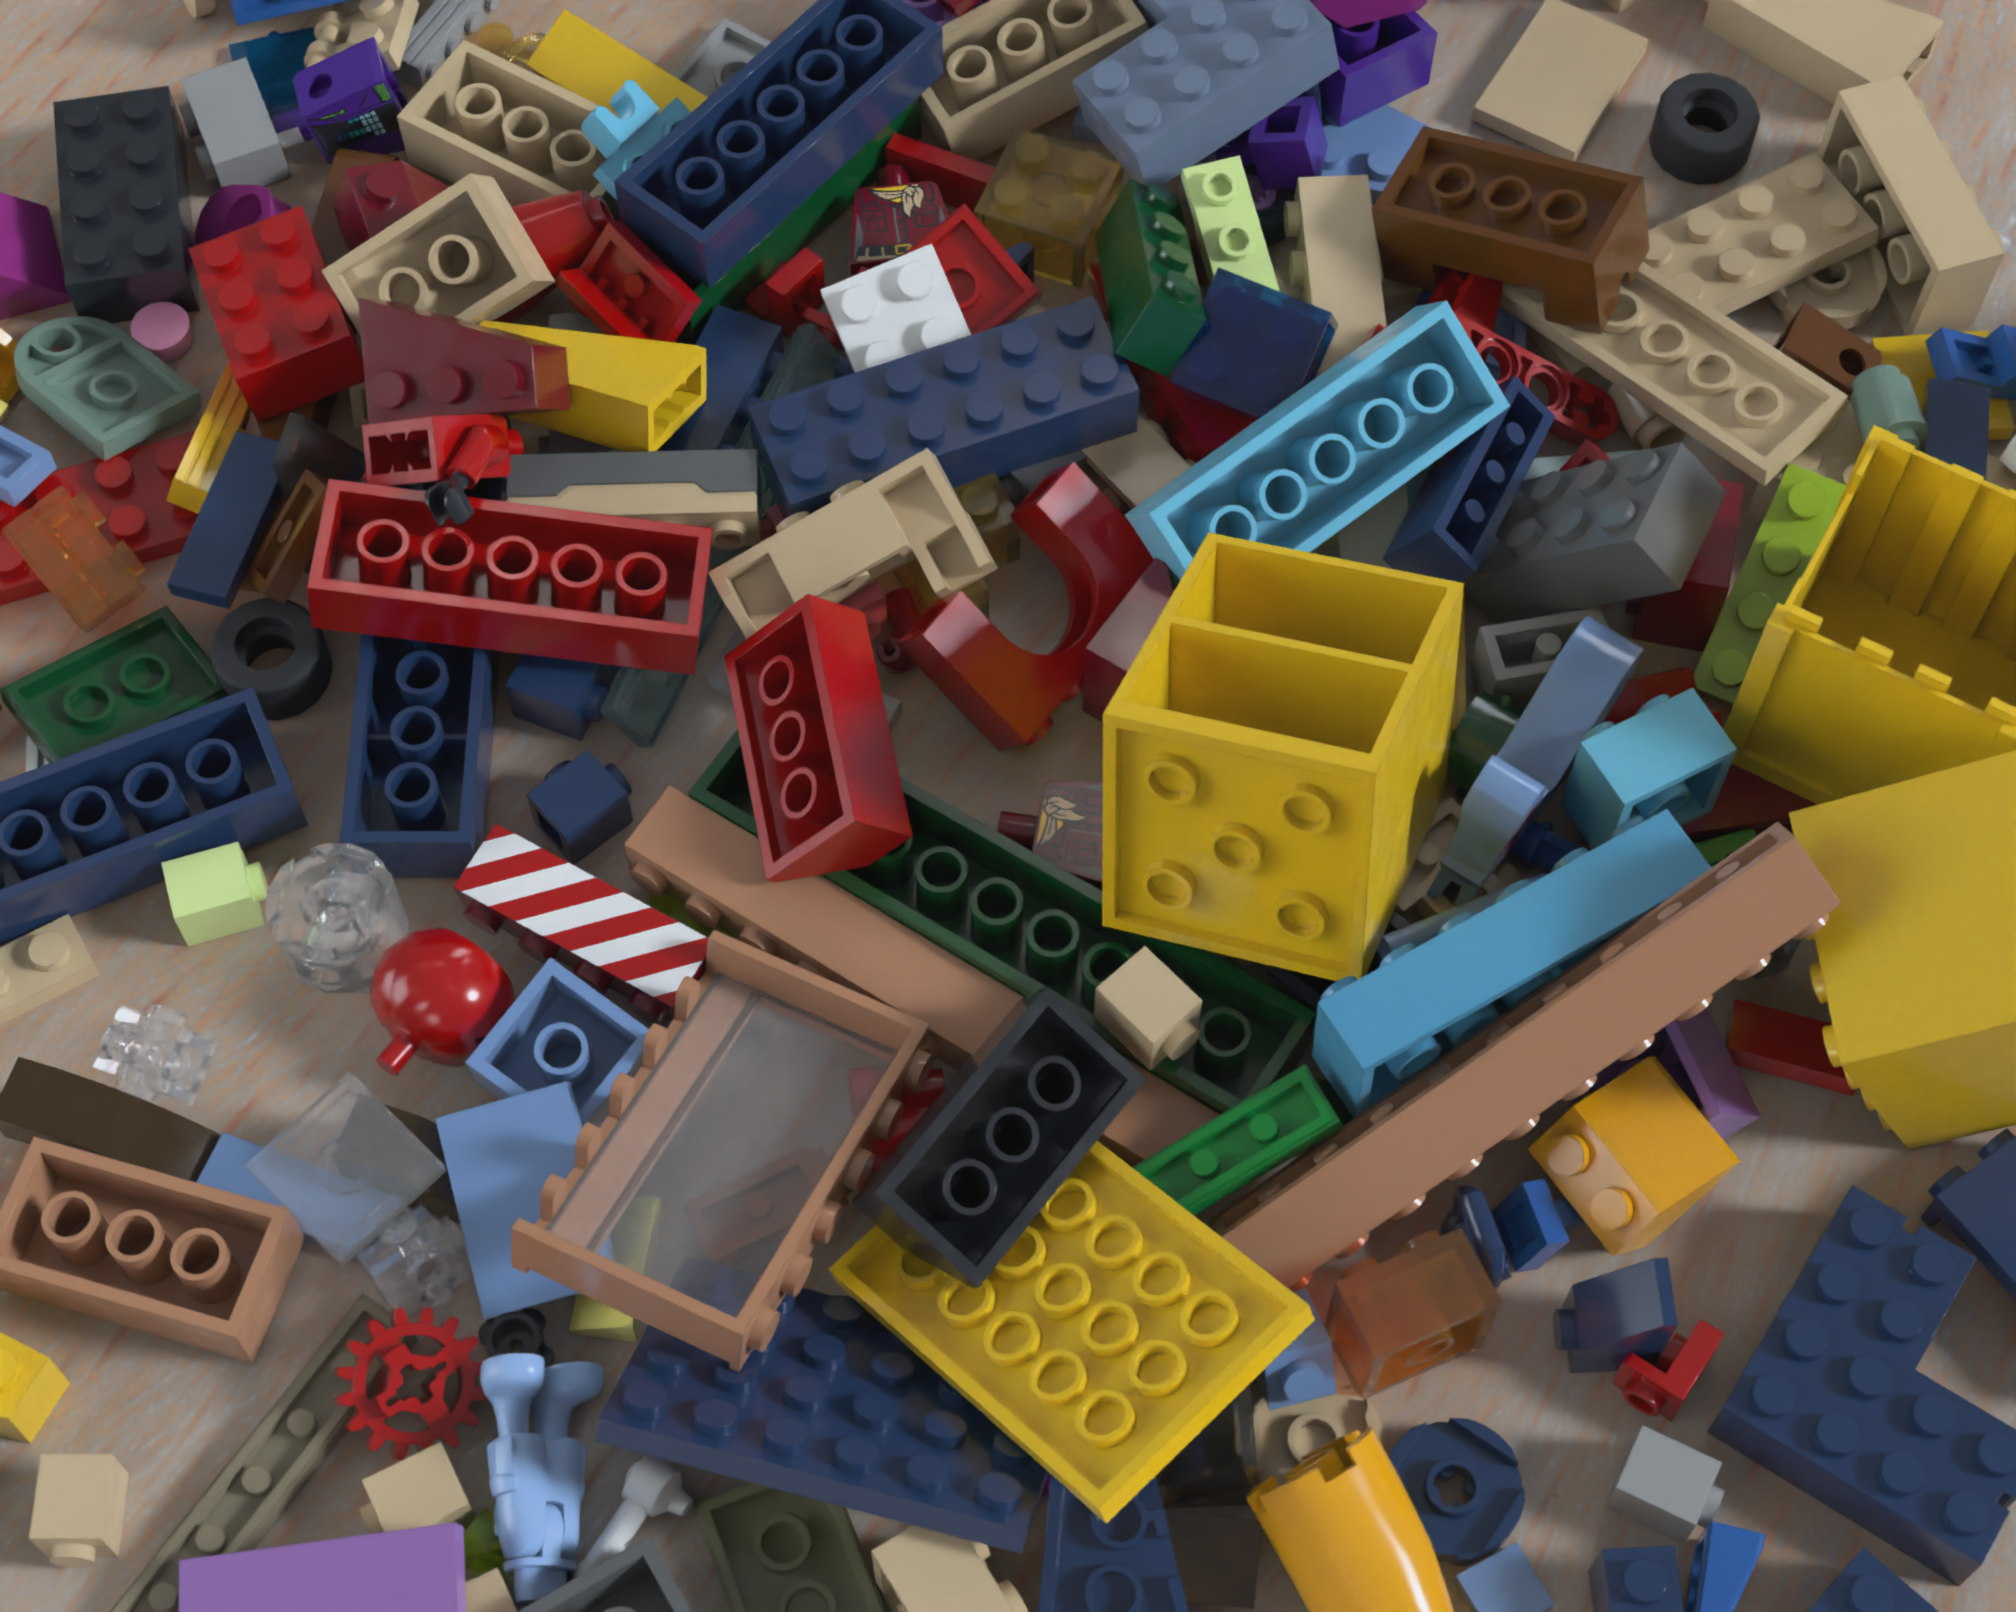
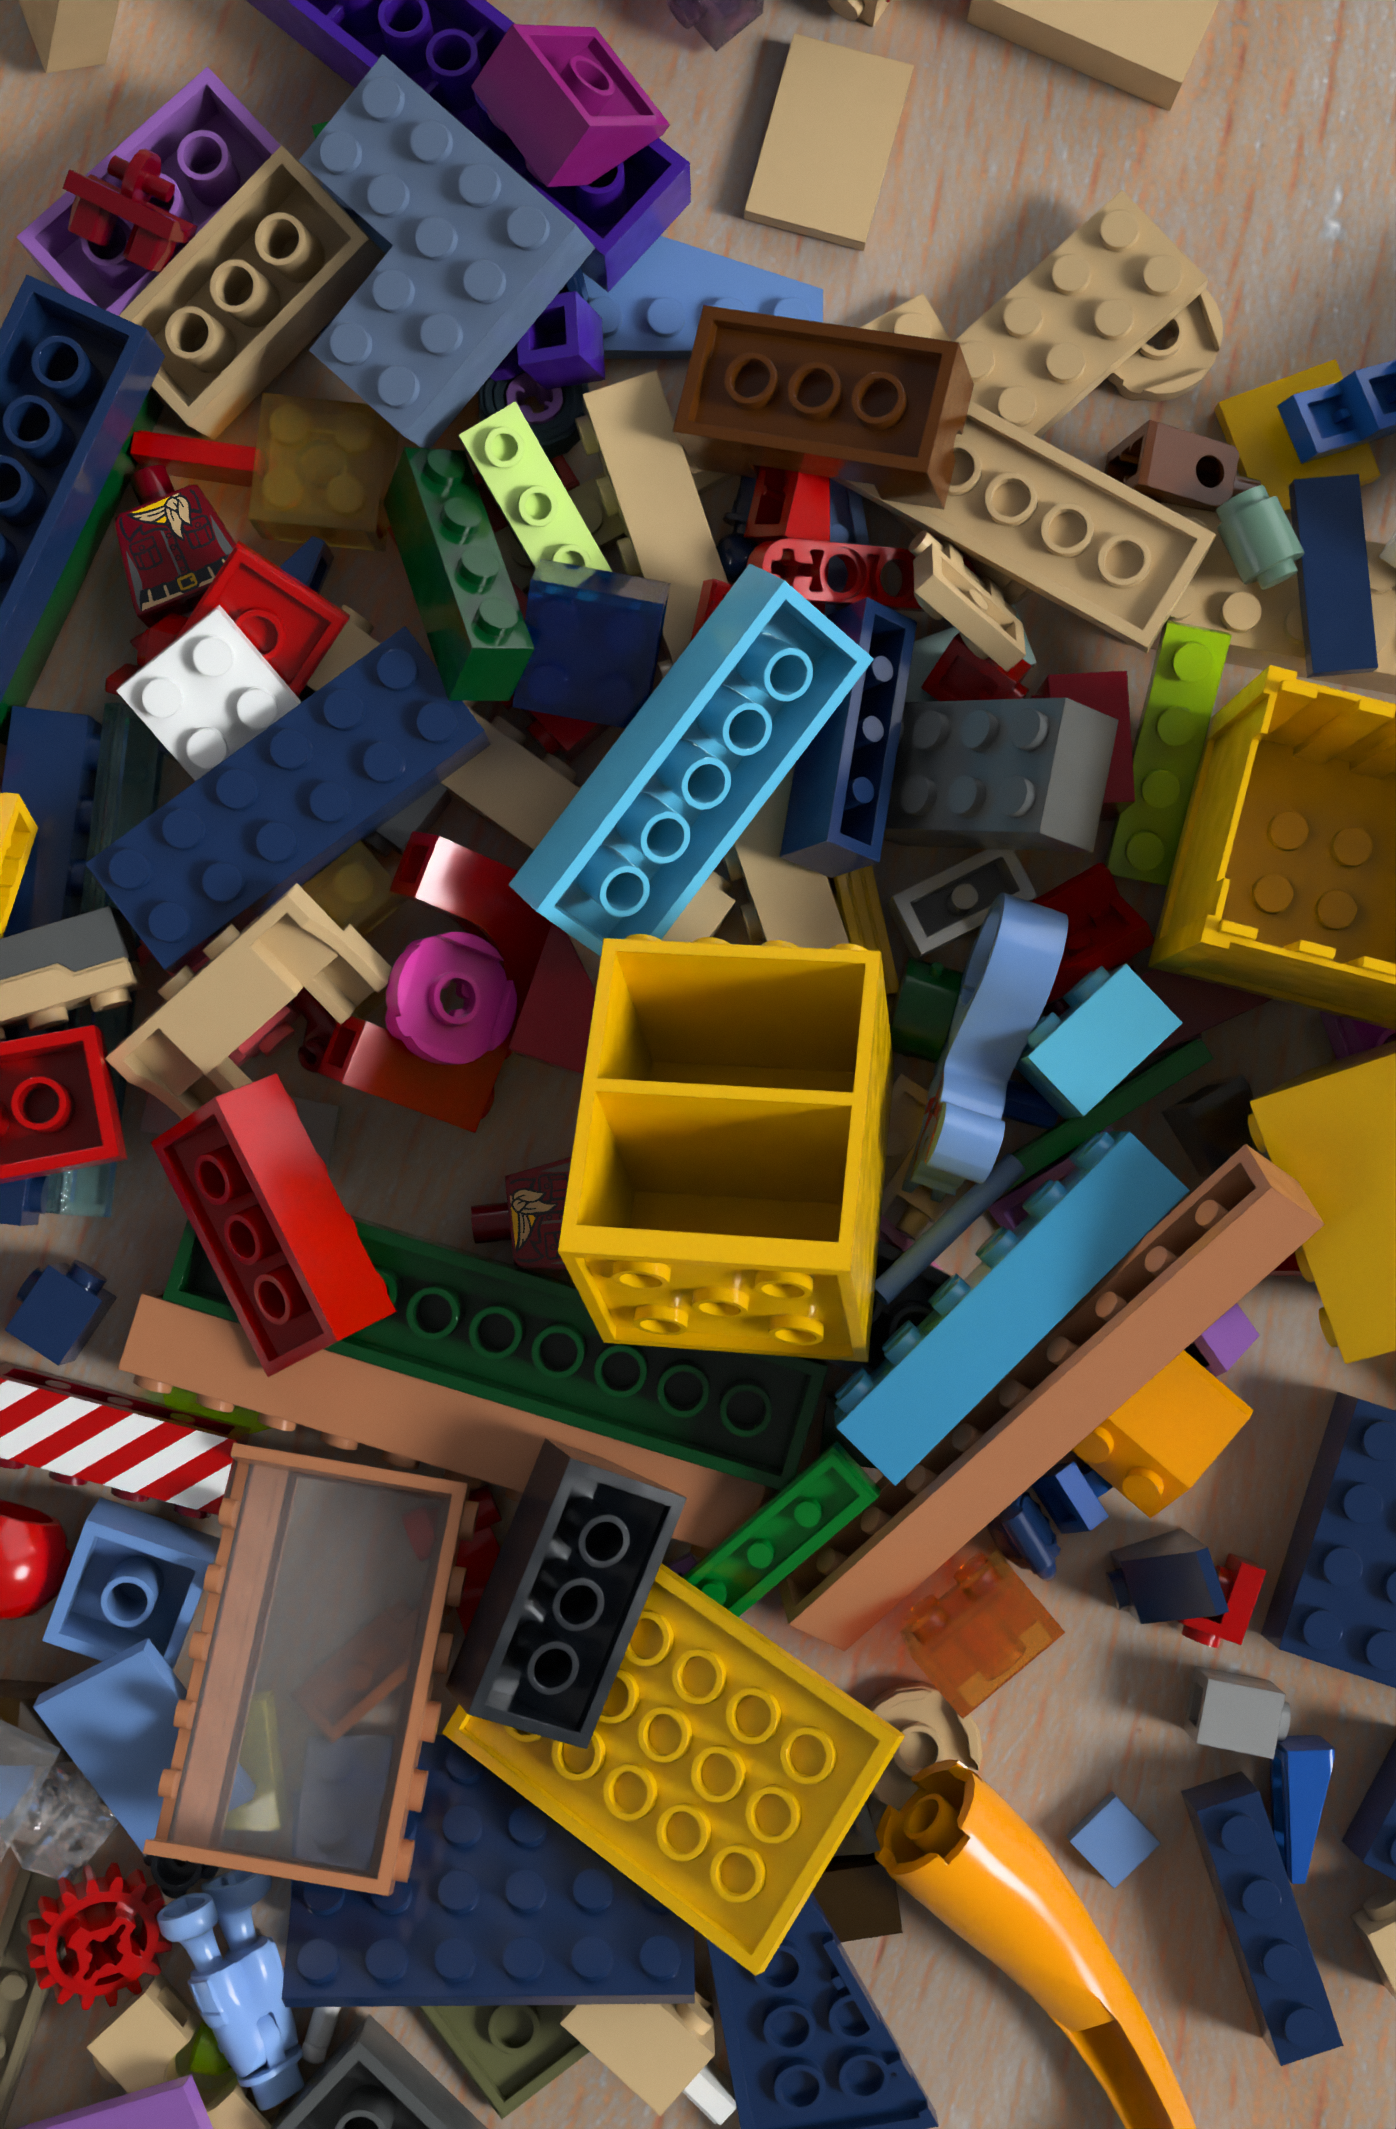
camera: 15 degrees left, 25 degrees up
(788, 291) = (82, 658): red bracket -> none
(1016, 616) = (415, 1004): none -> dark pink plate
(1149, 1009) = (673, 1427): tan brick -> none
(1303, 1368) = (878, 1681): medium blue brick -> none
(1493, 1483) = (1066, 1797): dark blue plate -> none
(1590, 389) = (970, 604): none -> tan plate
(1708, 102) = (1005, 137): black tyre -> none
(1928, 219) = (1232, 224): tan brick -> none

